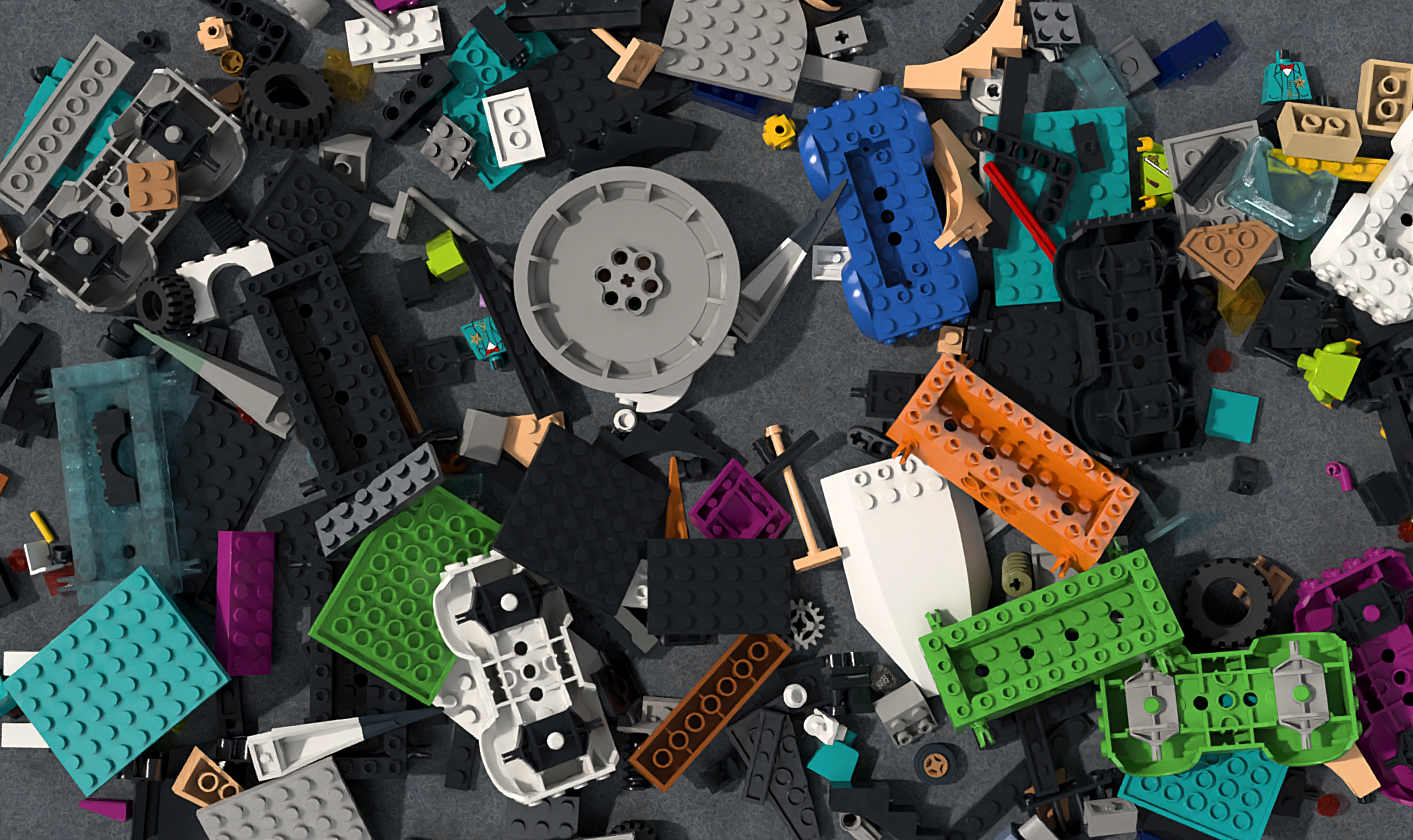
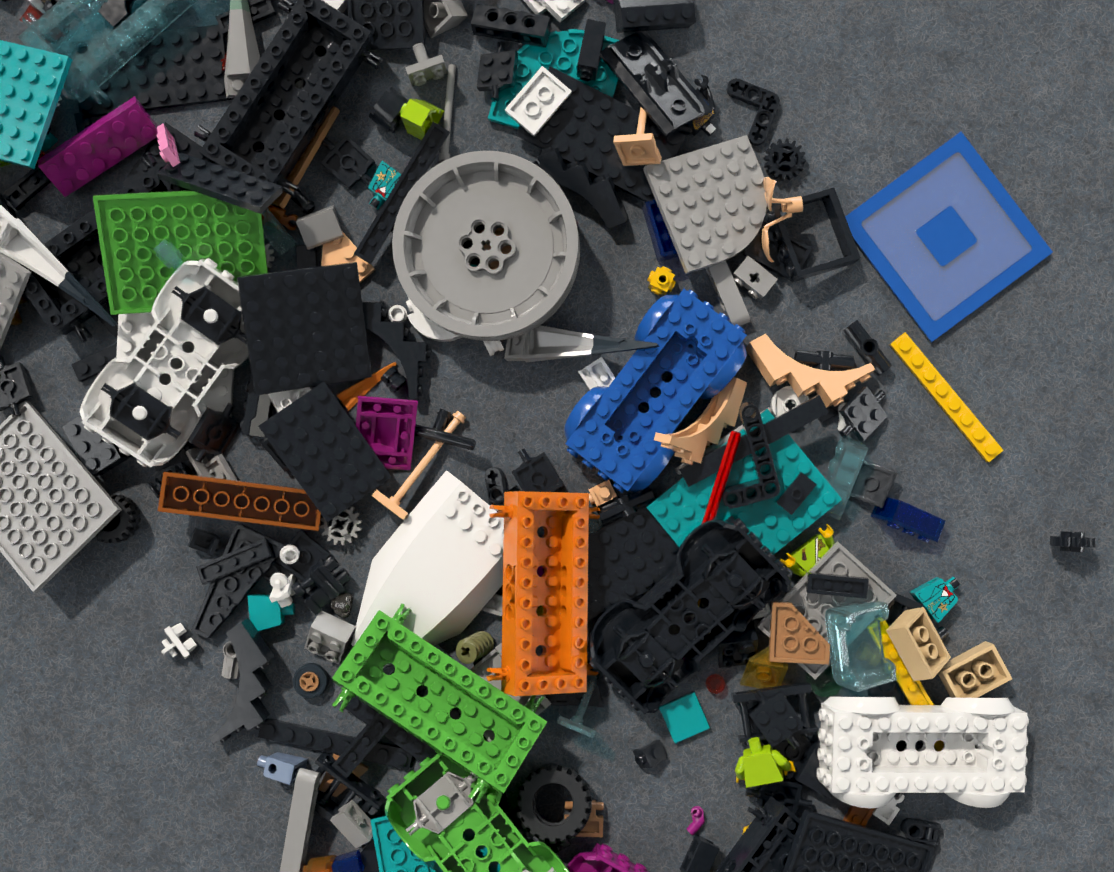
camera: 55 degrees right, 0 degrees up
(299, 530) = (167, 145): none -> bright pink plate
(414, 603) = (168, 254): none -> clear light blue brick

